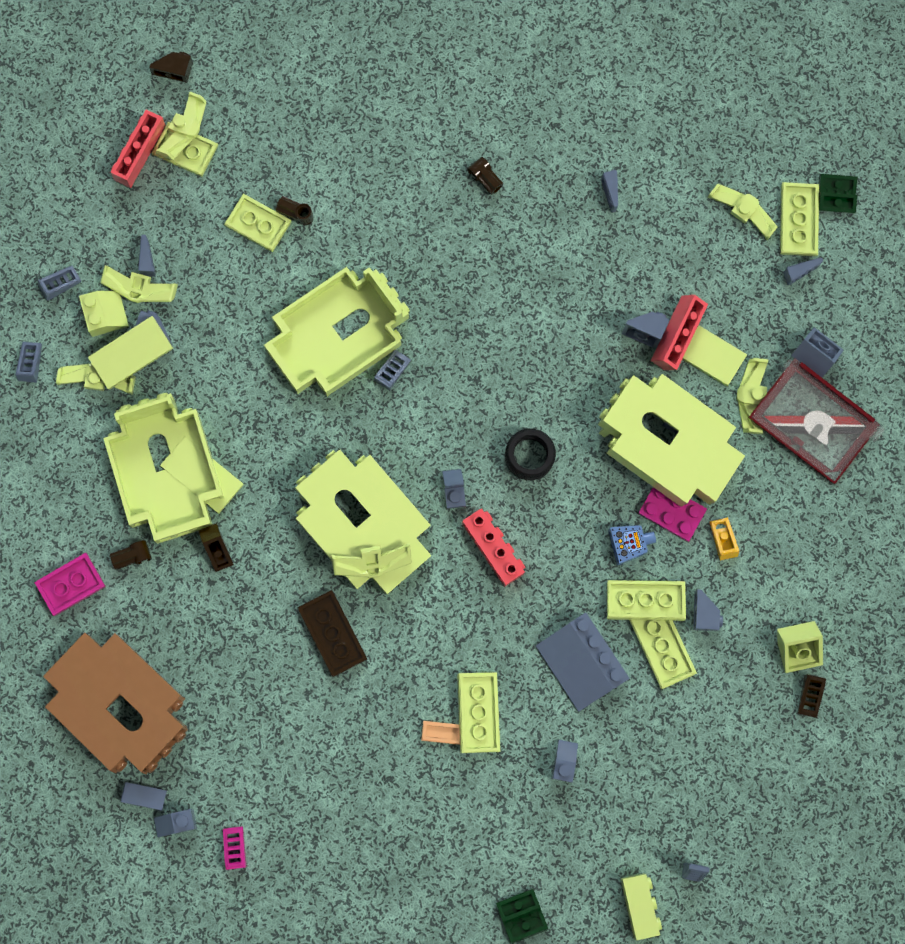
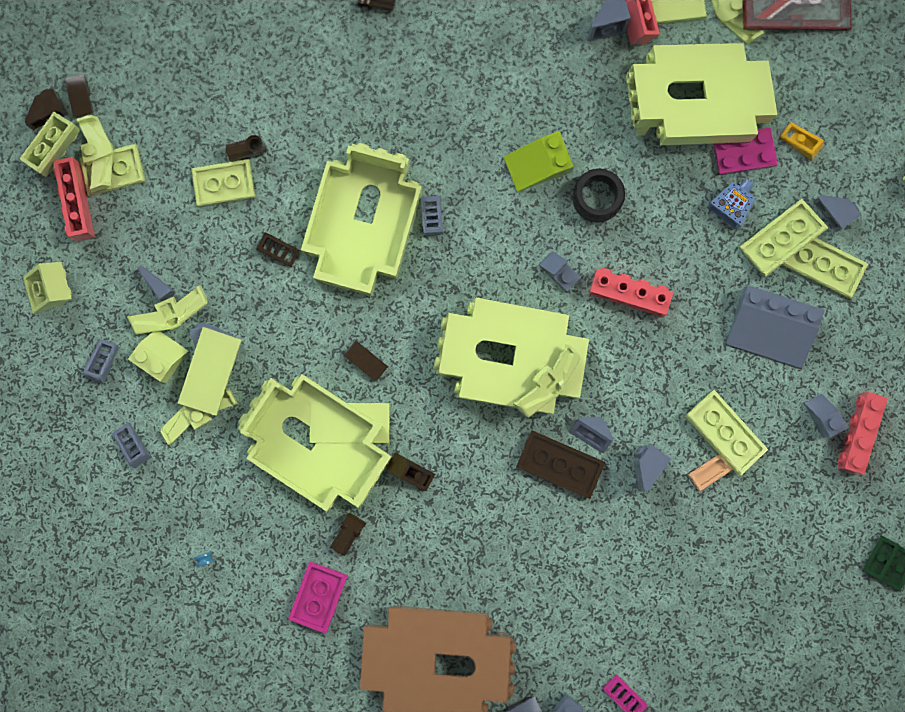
camera: 30 degrees left, 5 degrees up
(11, 488) = (204, 559): none -> dark azure bush
(66, 197) = (47, 286): none -> yellowish green slope
(154, 95) = (50, 144): none -> yellowish green slope
(205, 76) = (78, 95): none -> dark brown slope
(252, 438) = (365, 360): none -> dark brown slope
(253, 313) = (262, 242): none -> dark brown slope
(378, 629) = (593, 431): none -> sand blue slope
(396, 686) = (648, 466): none -> sand blue slope
(506, 393) = (539, 162): none -> lime slope
(581, 798) = (862, 433): none -> coral brick

